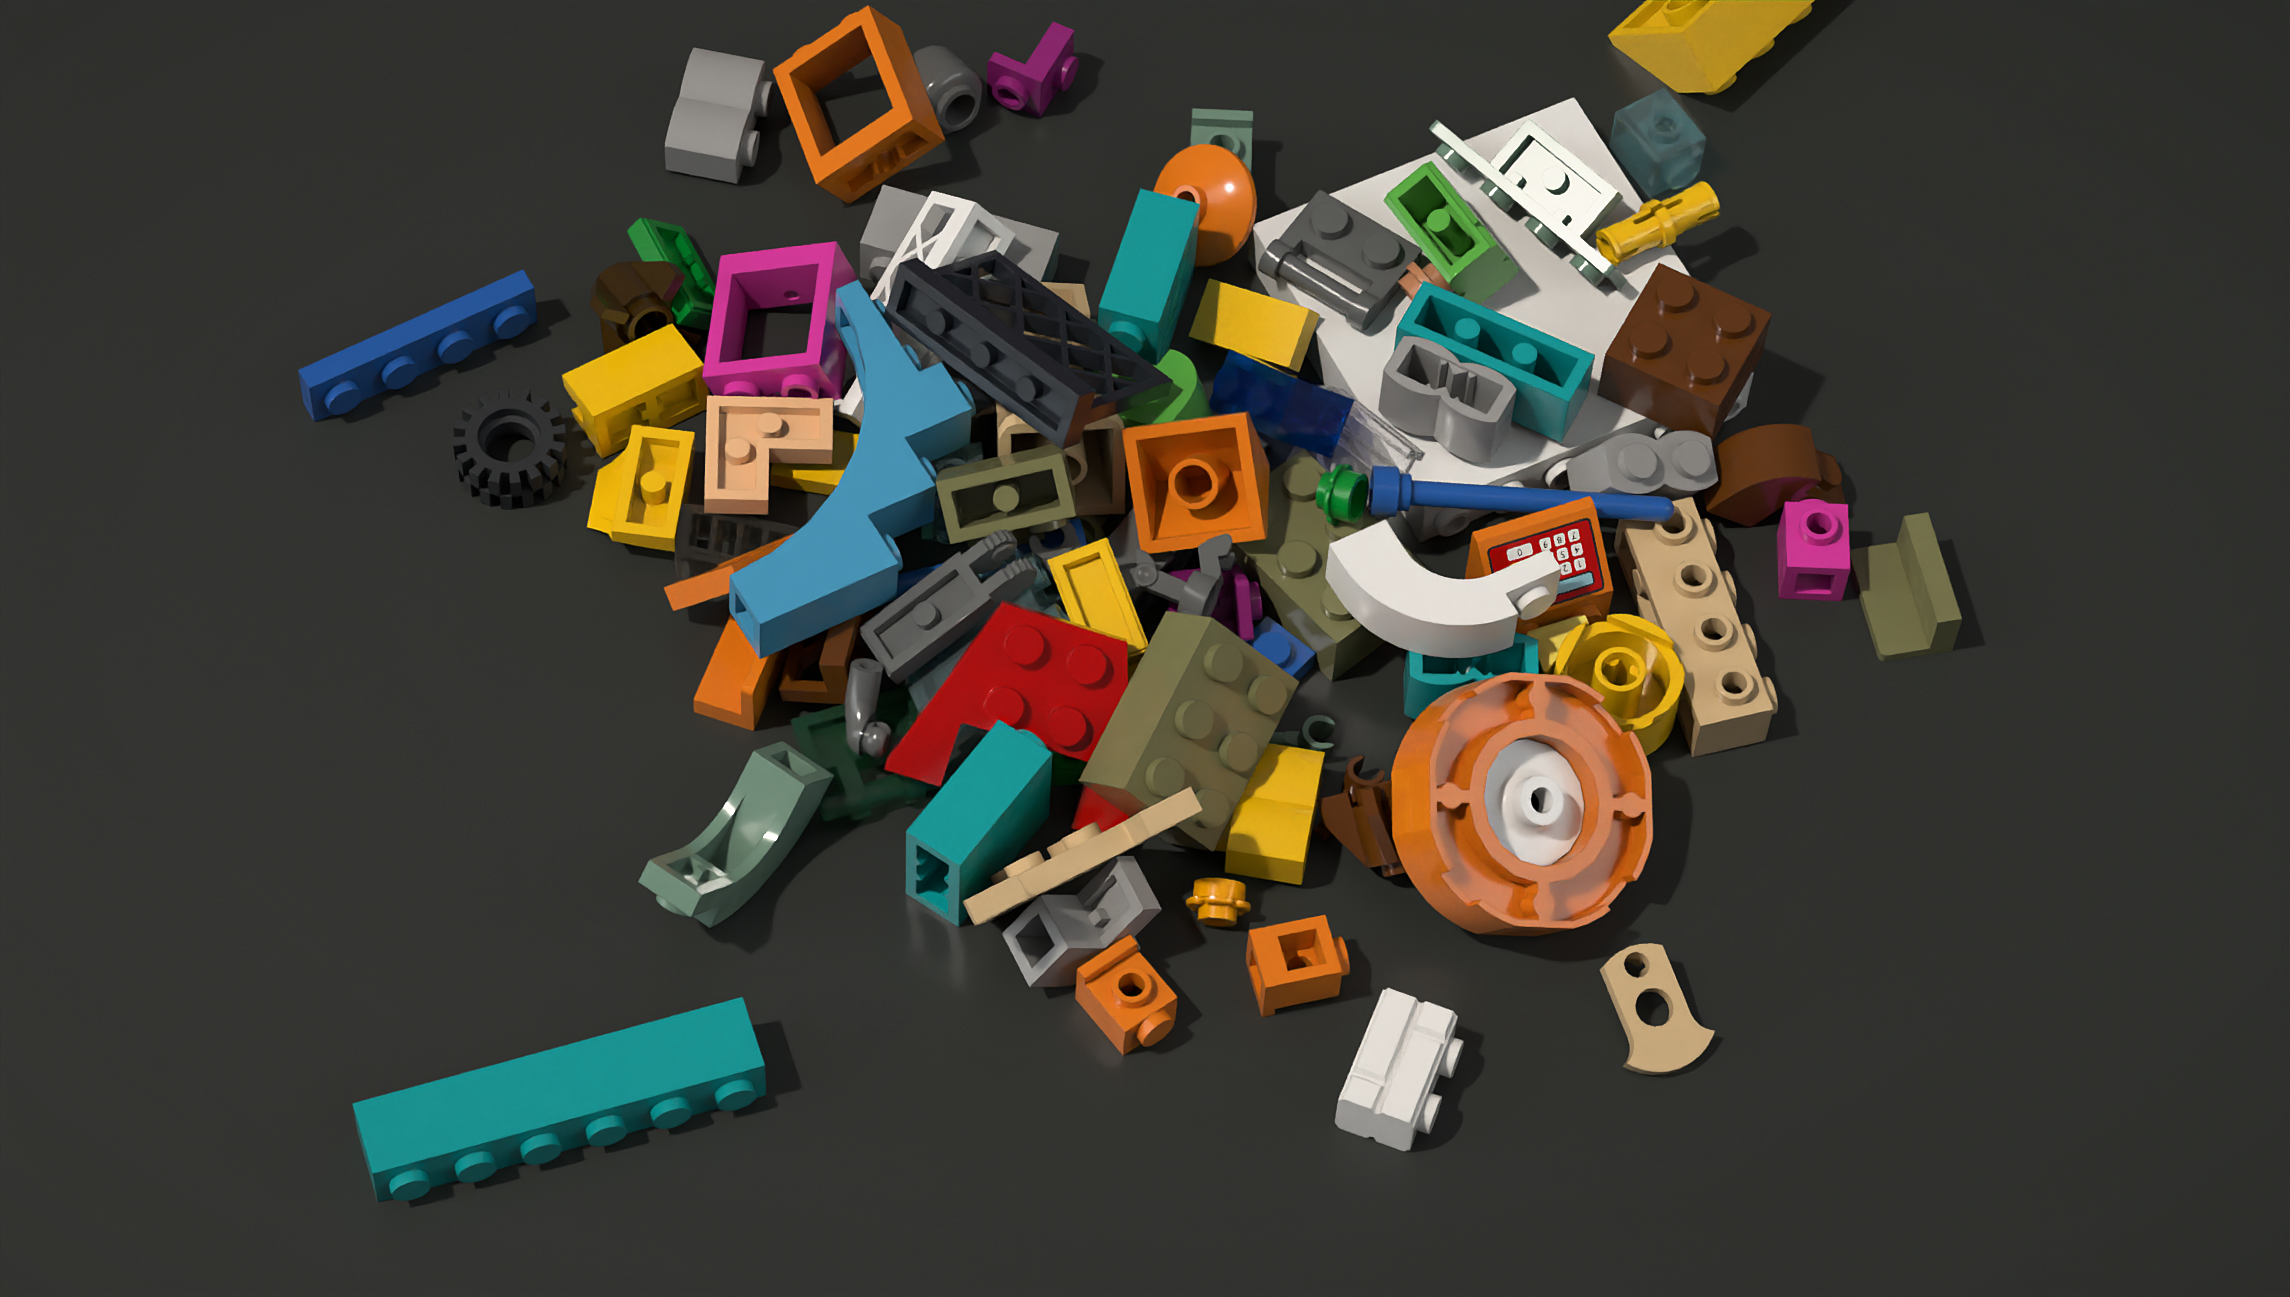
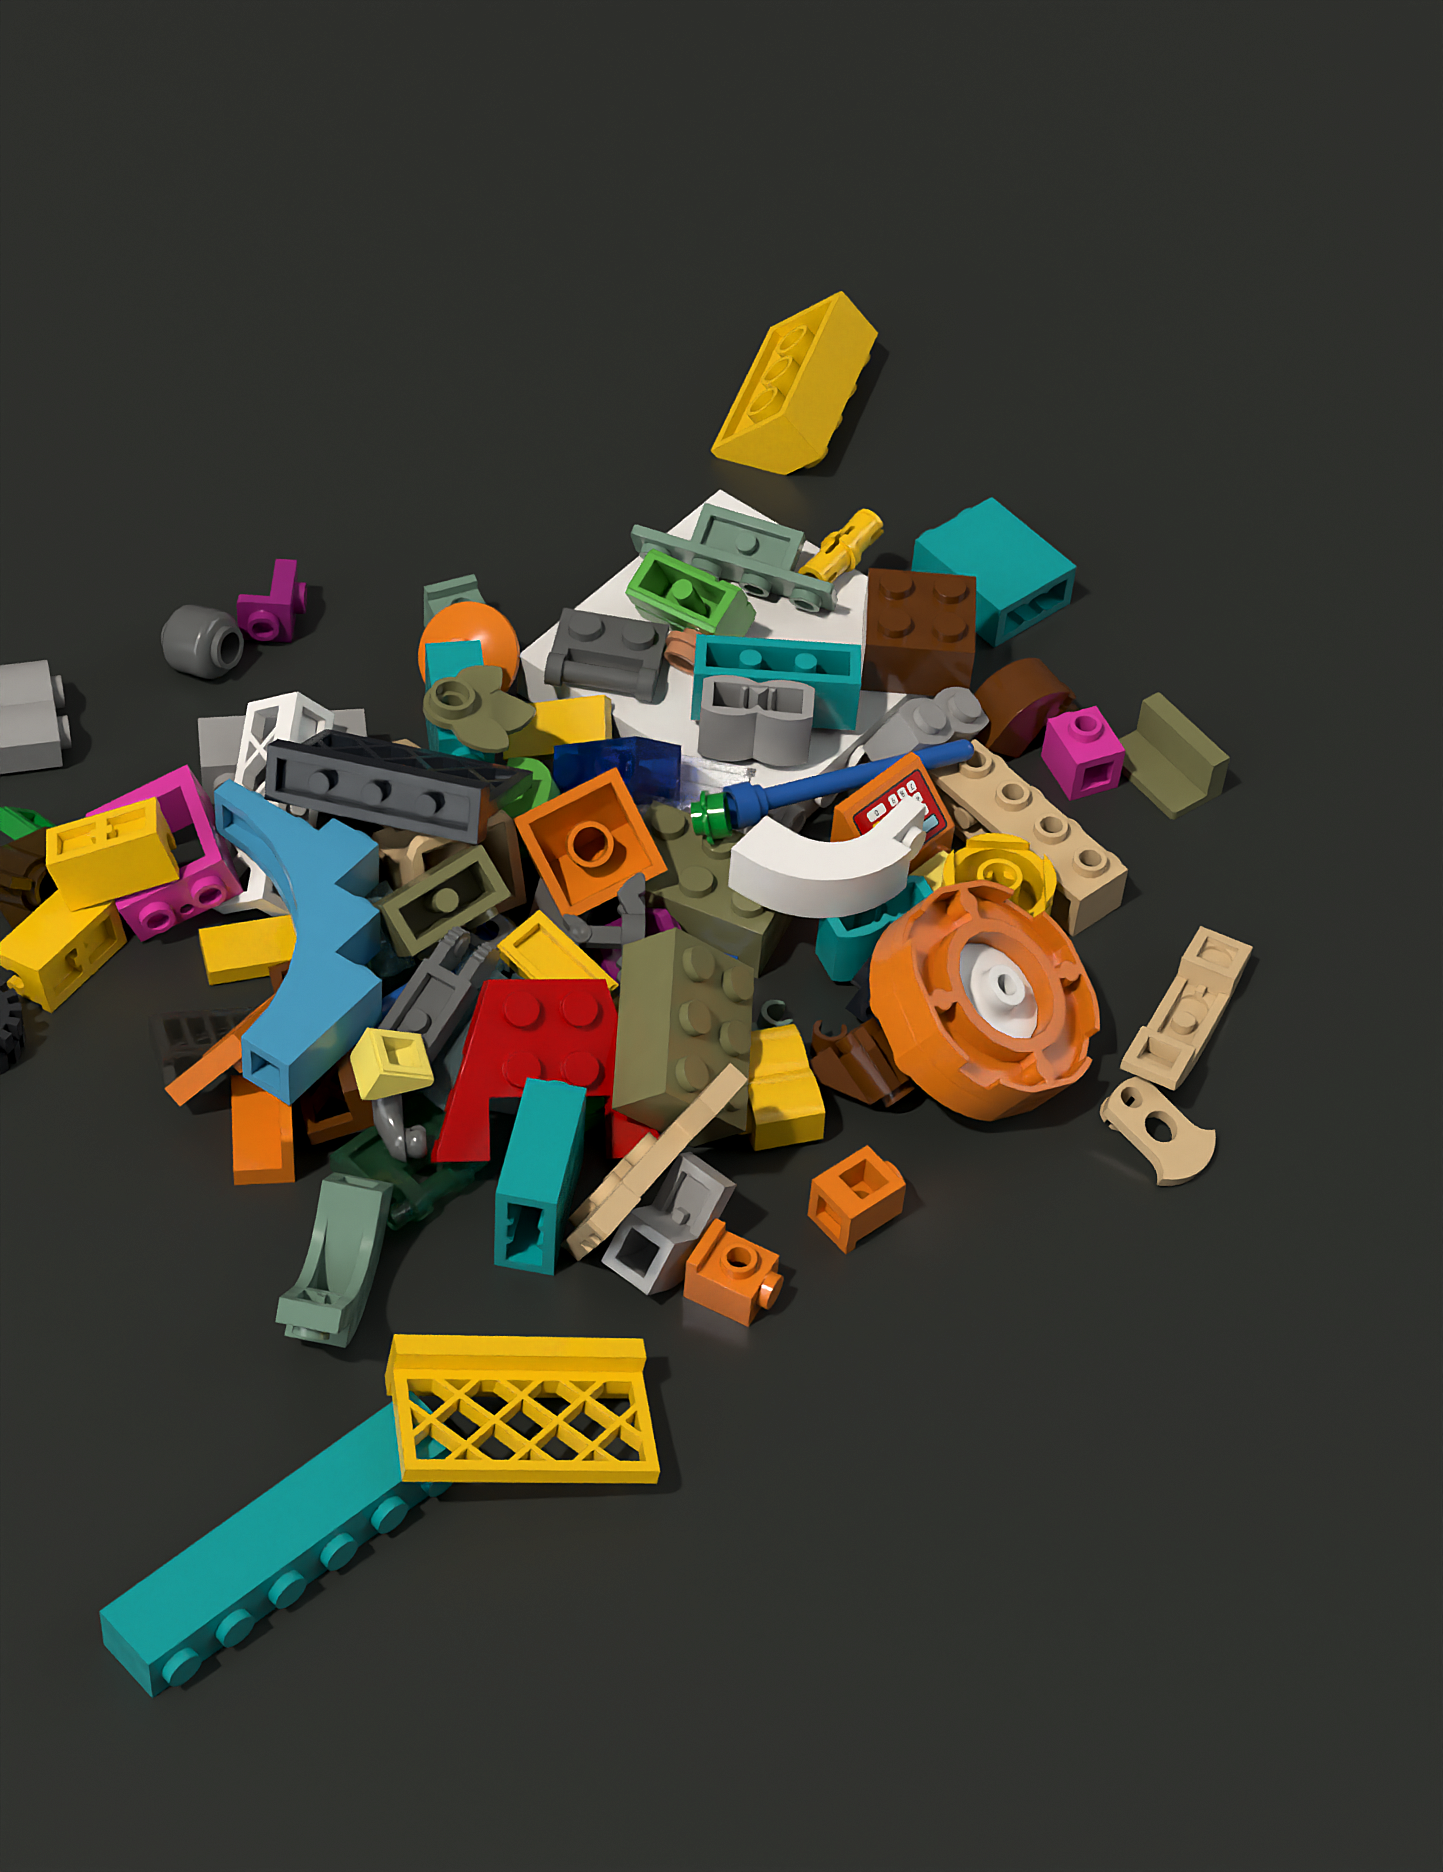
camera: 25 degrees left, 10 degrees down
(643, 488) = (105, 1019): yellow slope -> none
(712, 318) = (111, 854): none -> yellow hinge
(749, 435) = (182, 945): light nougat plate -> none
(844, 1012) = (518, 1372): none -> yellow fence
(875, 652) = (390, 1063): none -> light yellow slope
(901, 133) = (194, 674): orange window -> none
(1160, 289) = (477, 708): none -> olive plate
(1218, 901) = (765, 1173): light orange plate -> none
(1398, 1069) = (987, 1250): white brick -> none
(1657, 143) = (799, 502): clear light blue brick -> none
(1758, 894) = (1189, 1010): none -> tan slope
(1836, 296) = (1014, 568): none -> teal brick

